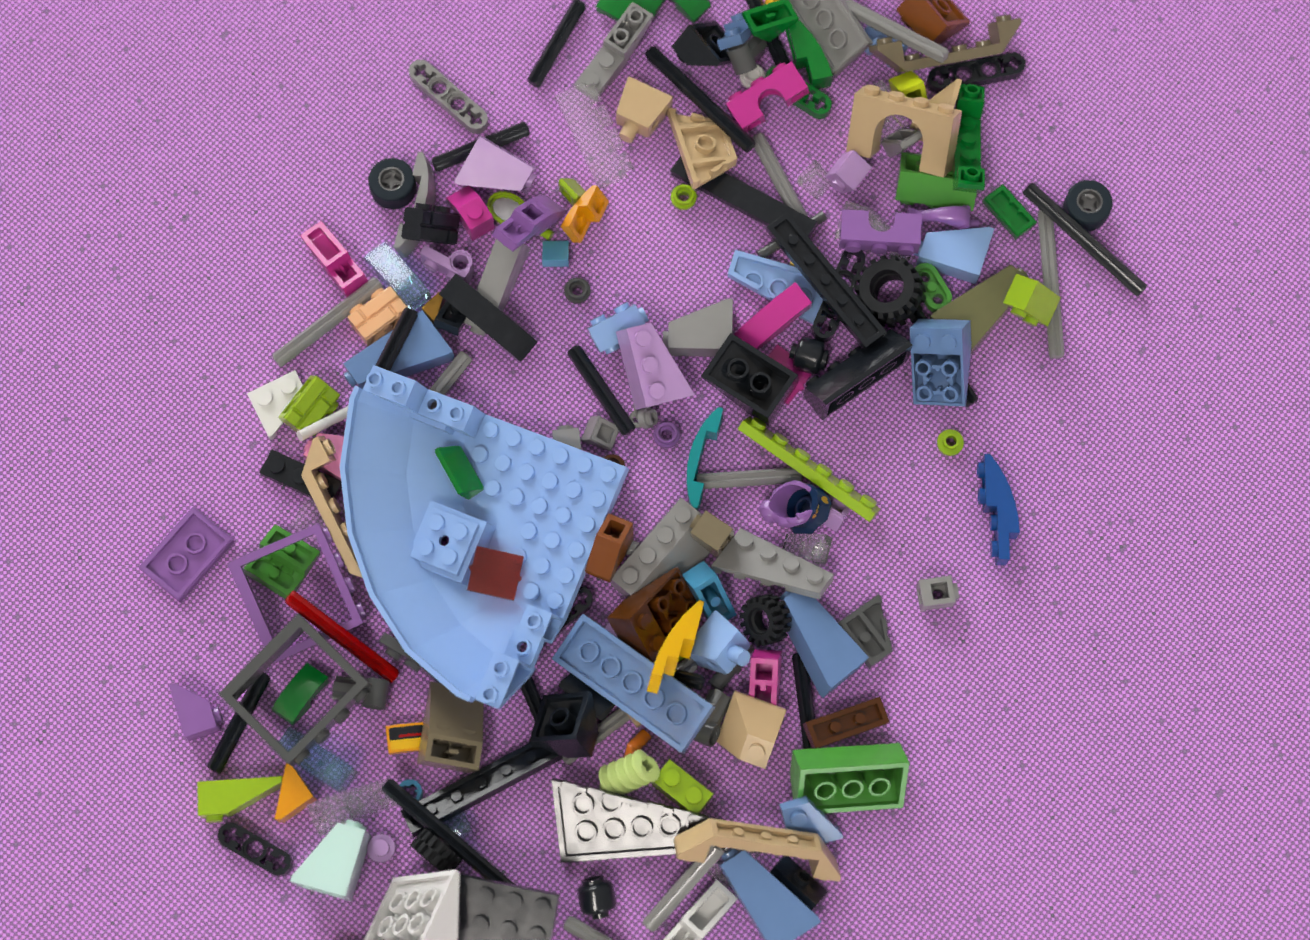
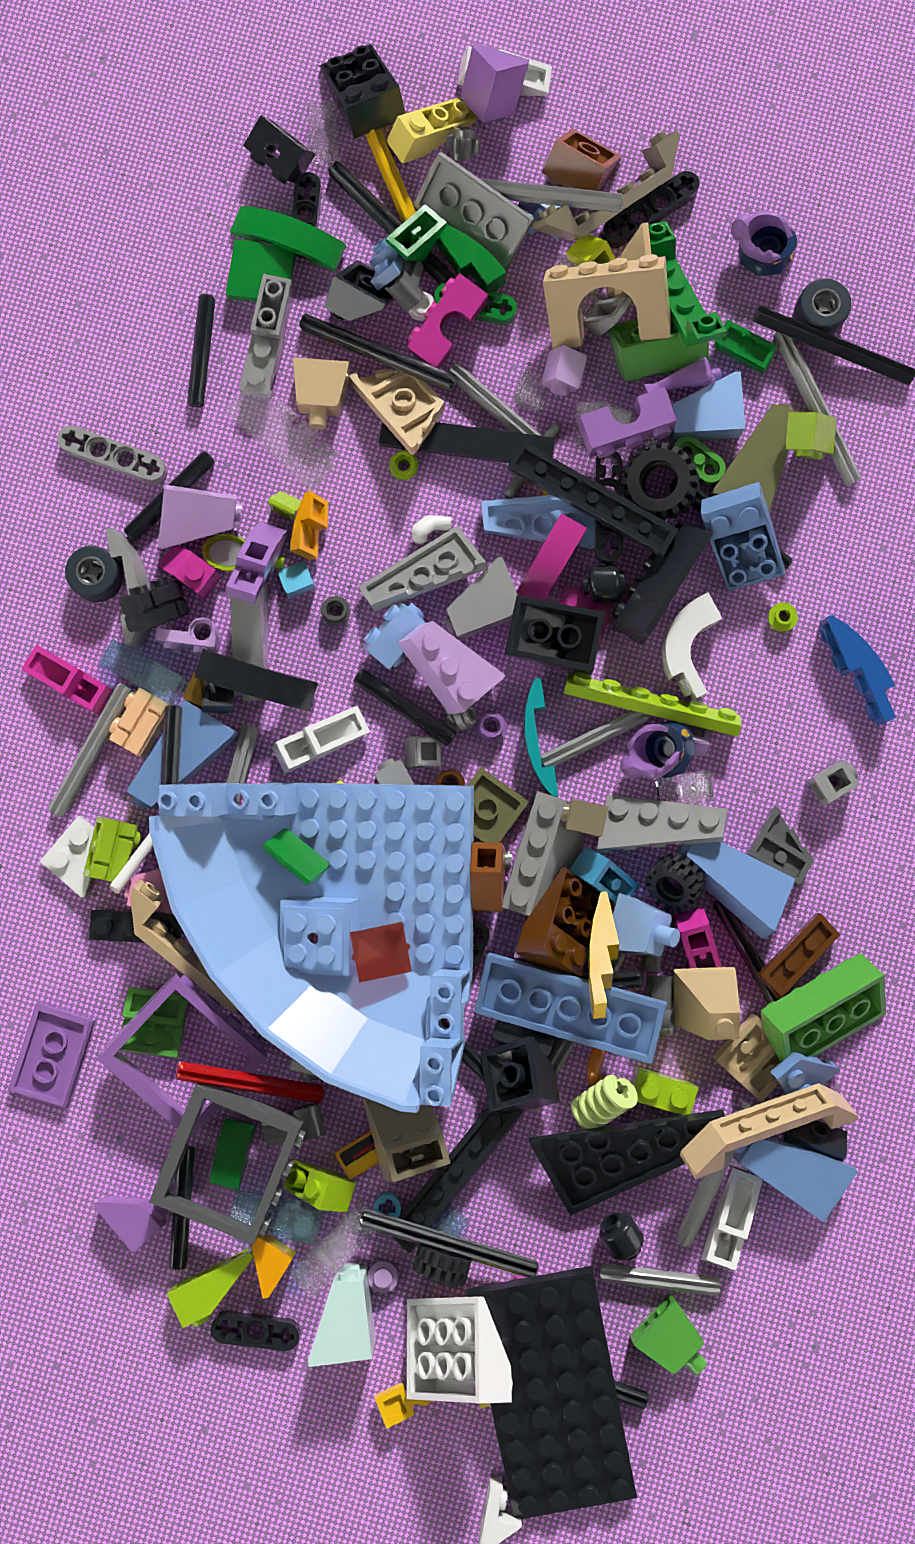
camera: 20 degrees left, 10 degrees up
(361, 749) = (320, 1186): none -> lime slope
(519, 388) = (320, 739): none -> white slope
(640, 498) = (494, 807): none -> olive plate
(664, 286) = (426, 569): none -> light grey wing
(684, 251) = (427, 525): none -> white arm
(765, 793) = (750, 1058): none -> tan slope
(866, 415) = (676, 646): none -> white arch
(1059, 134) = (765, 242): none -> piece

